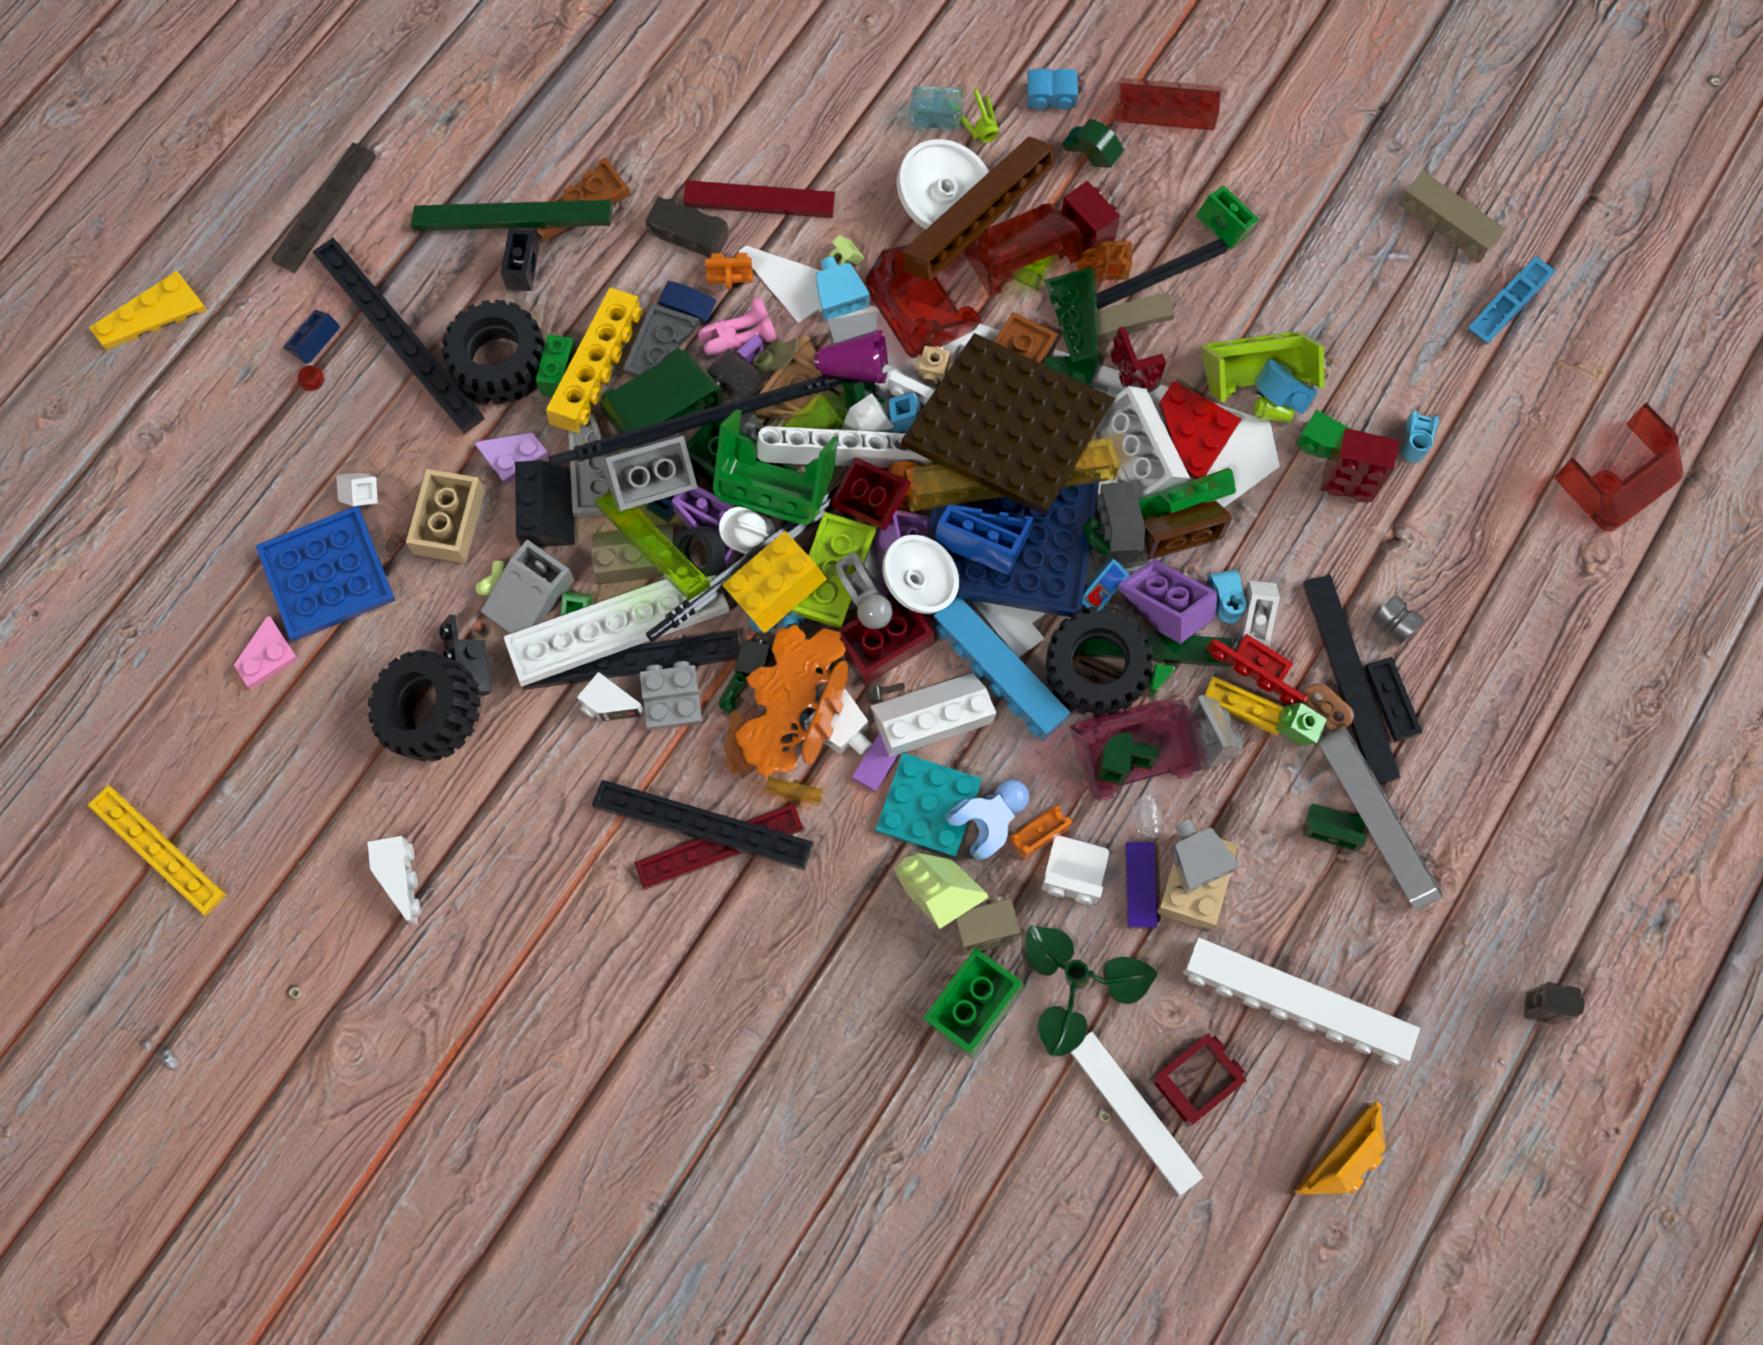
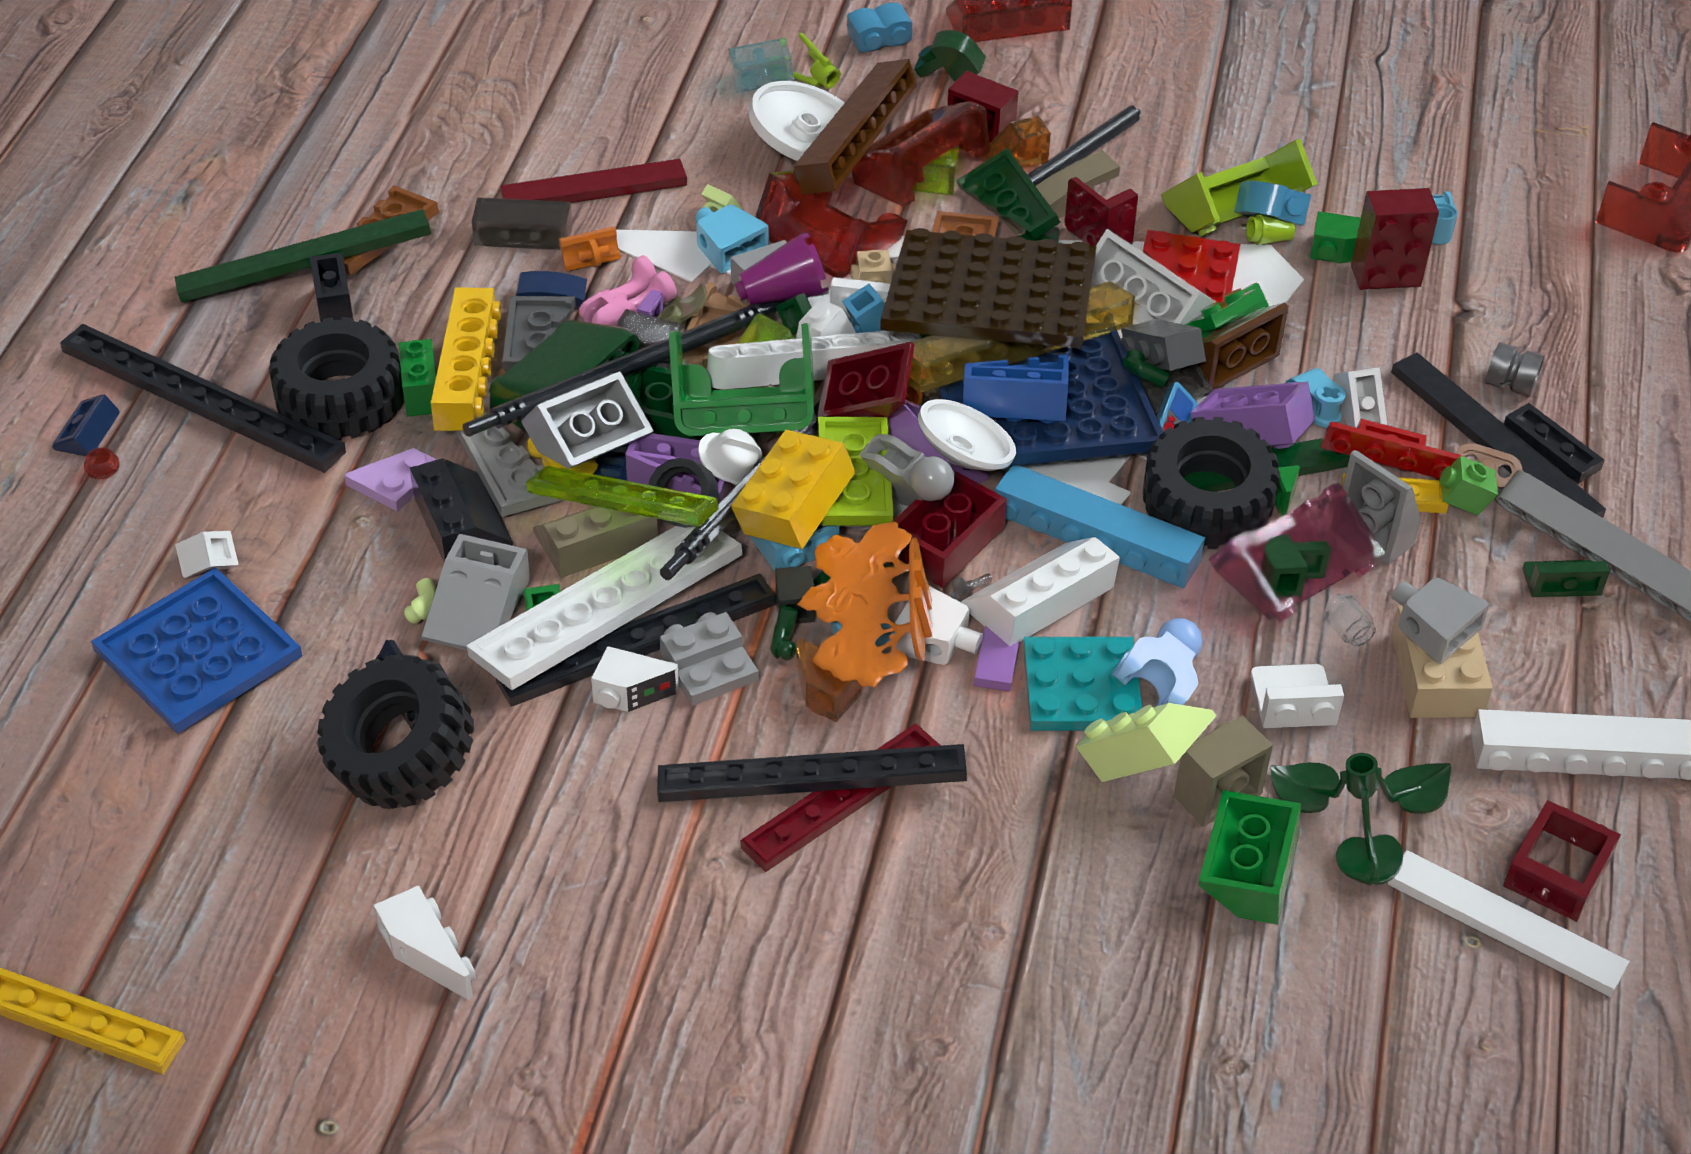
camera: 20 degrees left, 25 degrees down
(264, 655) = (144, 758): bright pink wing -> none
(323, 207) = (55, 307): clear smoke tile -> none
(445, 516) = (338, 547): tan brick -> none
(794, 790) = (909, 710): clear yellow pin -> none
(1040, 832) = (1232, 670): orange hinge -> none
(1140, 885) = (1378, 691): dark purple tile -> none
(1227, 217) = (1144, 83): green brick -> none
(1451, 216) = (1358, 38): dark tan brick -> none
(1511, 300) = (1460, 89): dark azure slope -> none

